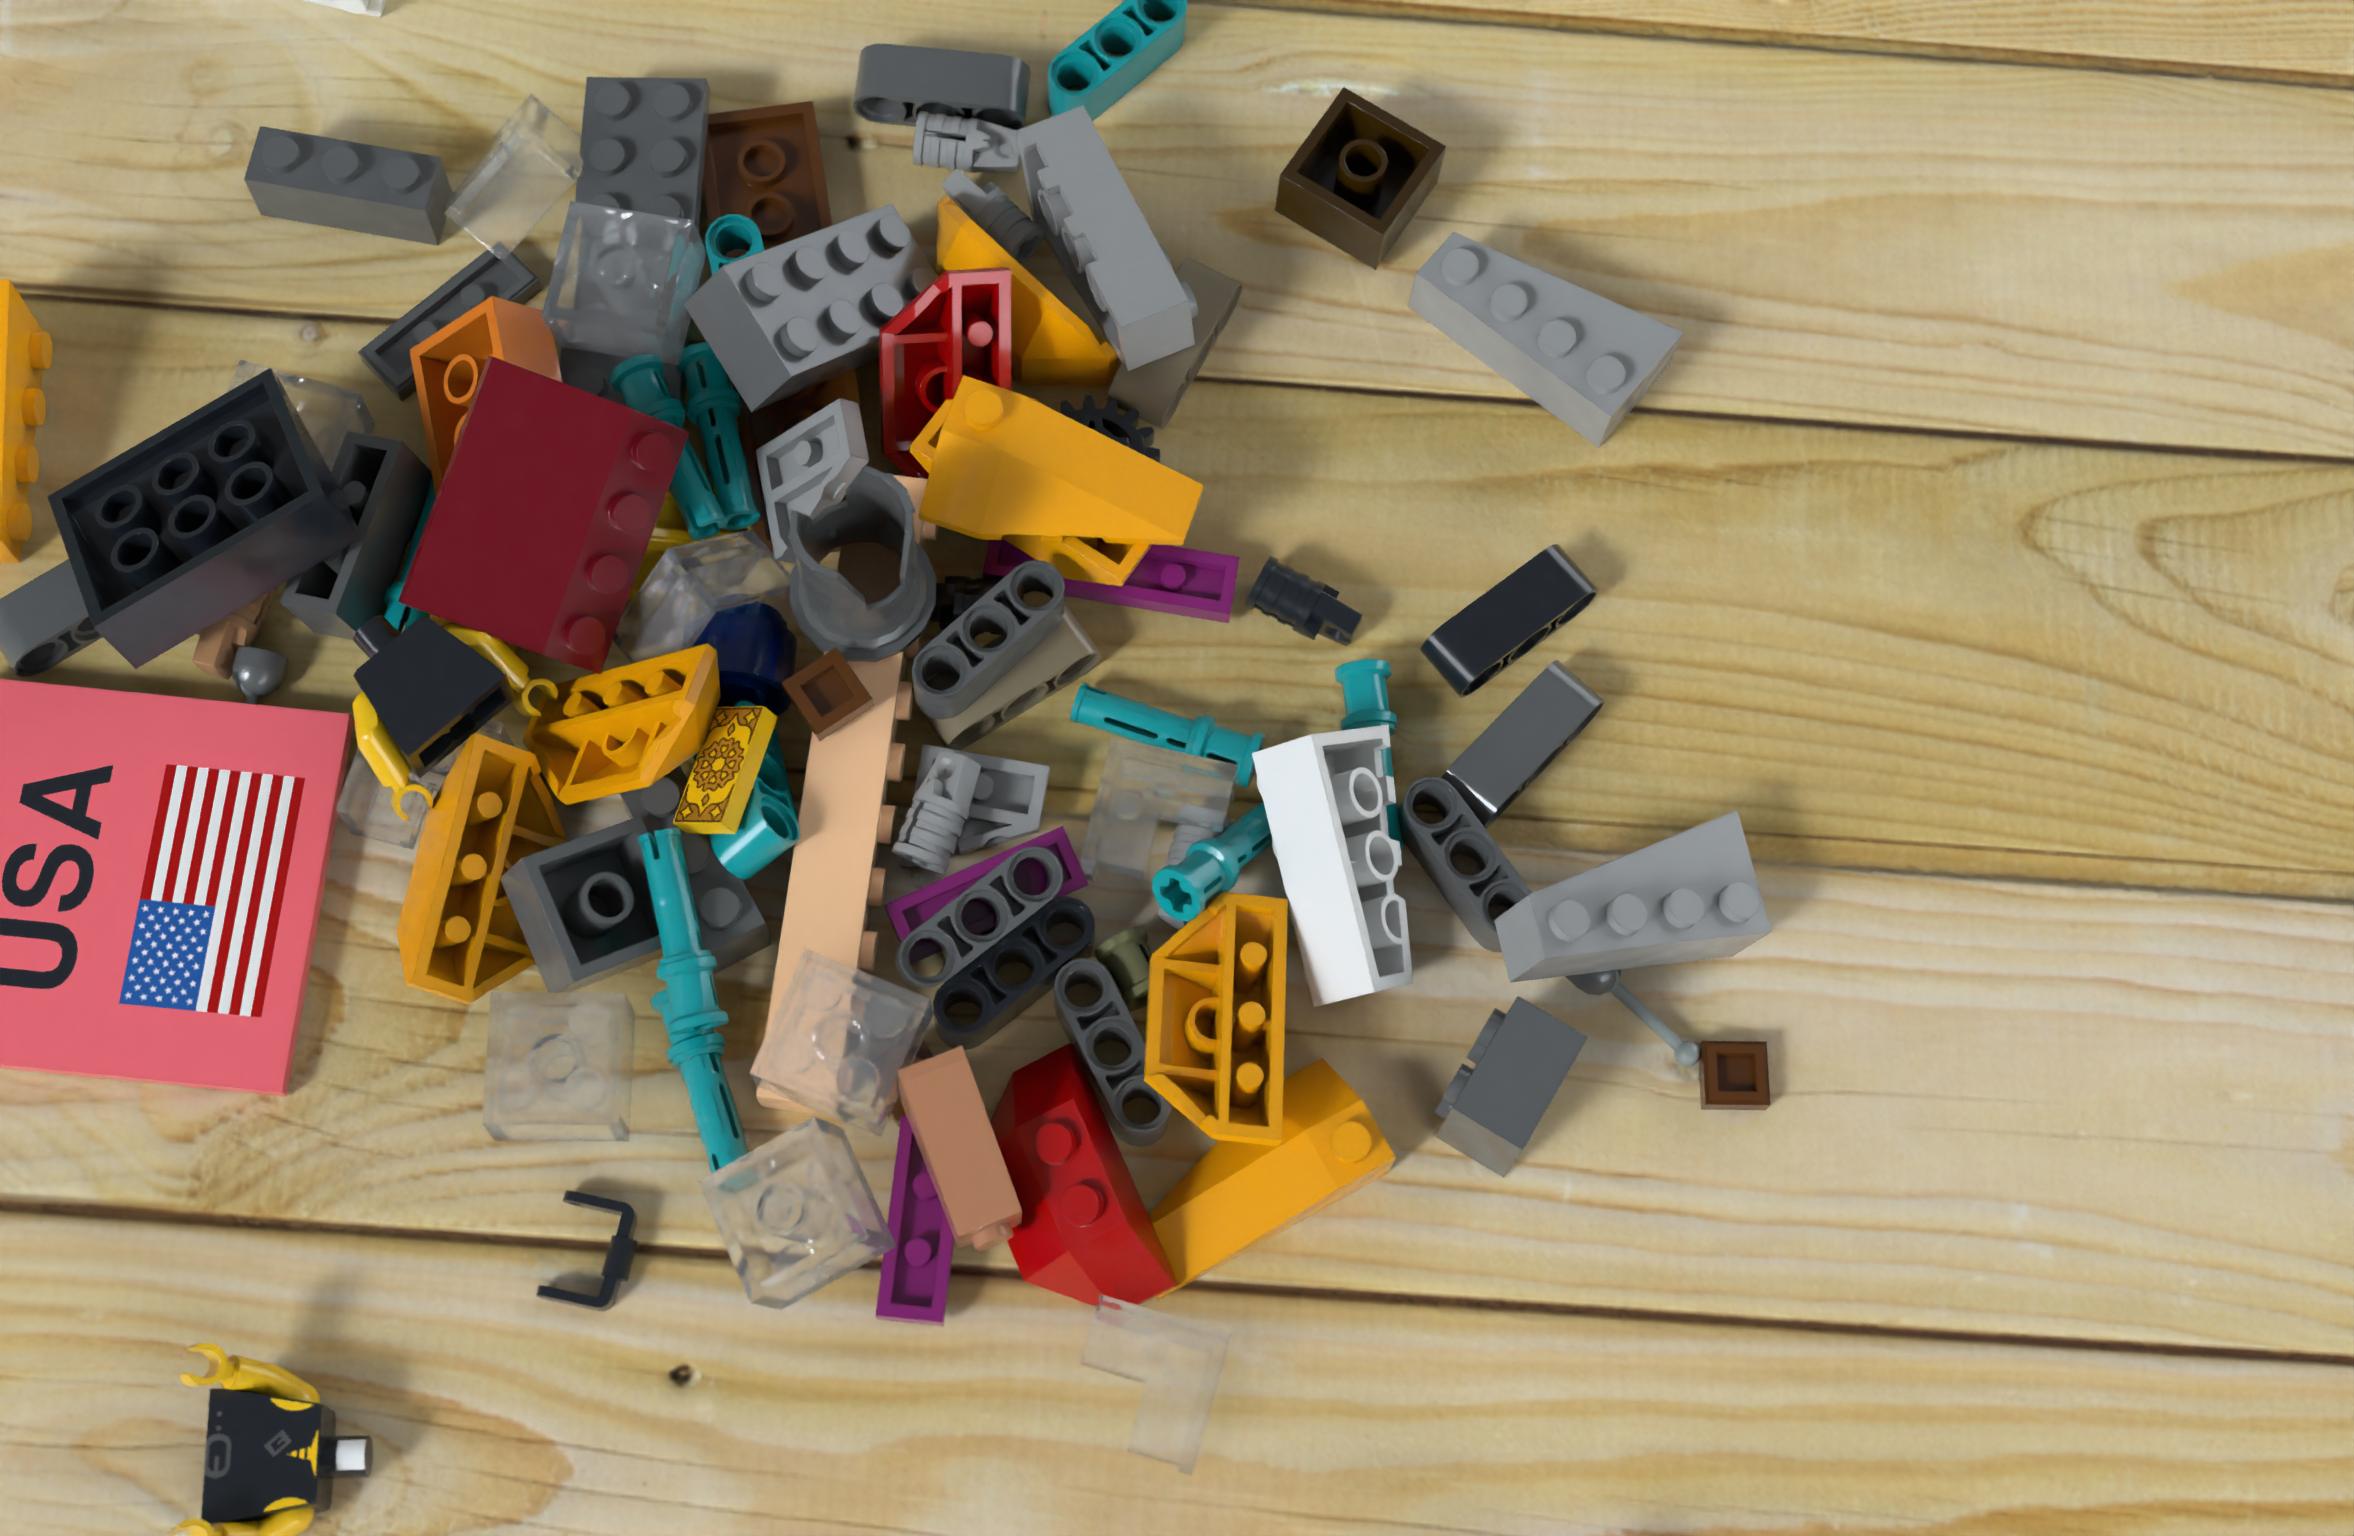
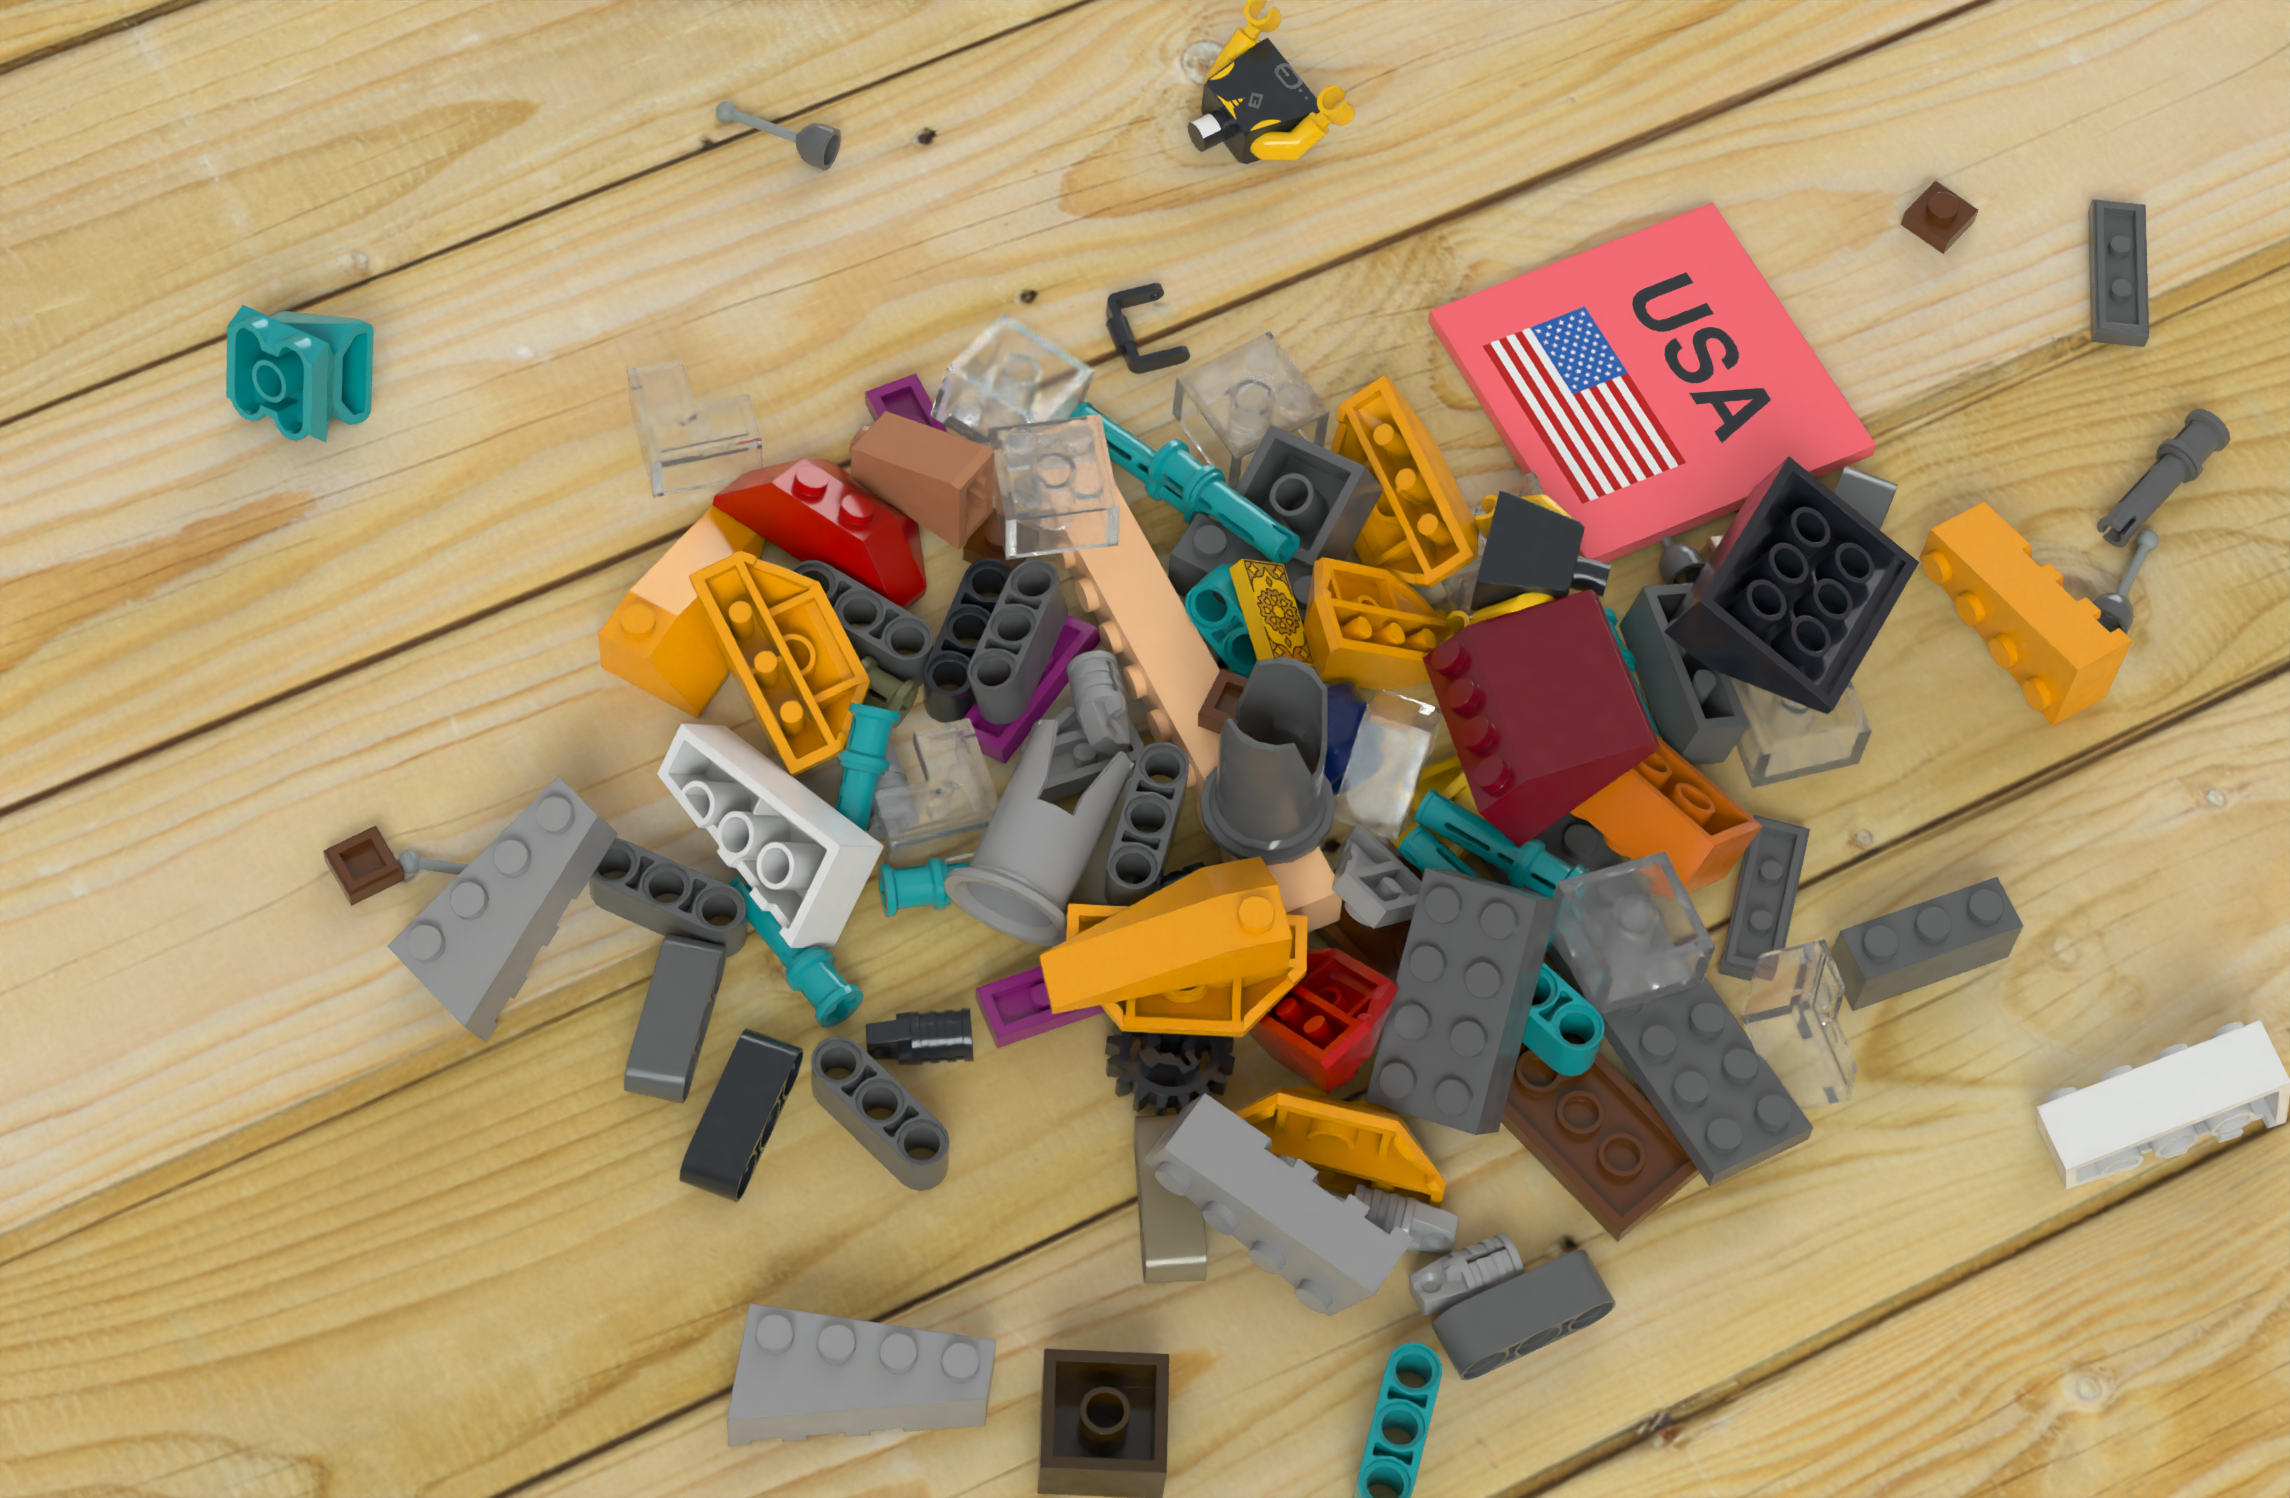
camera: 150 degrees right, 10 degrees down
(1099, 676) = (1034, 848): none -> light grey piece
(1392, 525) = (871, 1088): none -> dark grey beam
(1516, 1076) = (539, 726): dark grey brick -> none

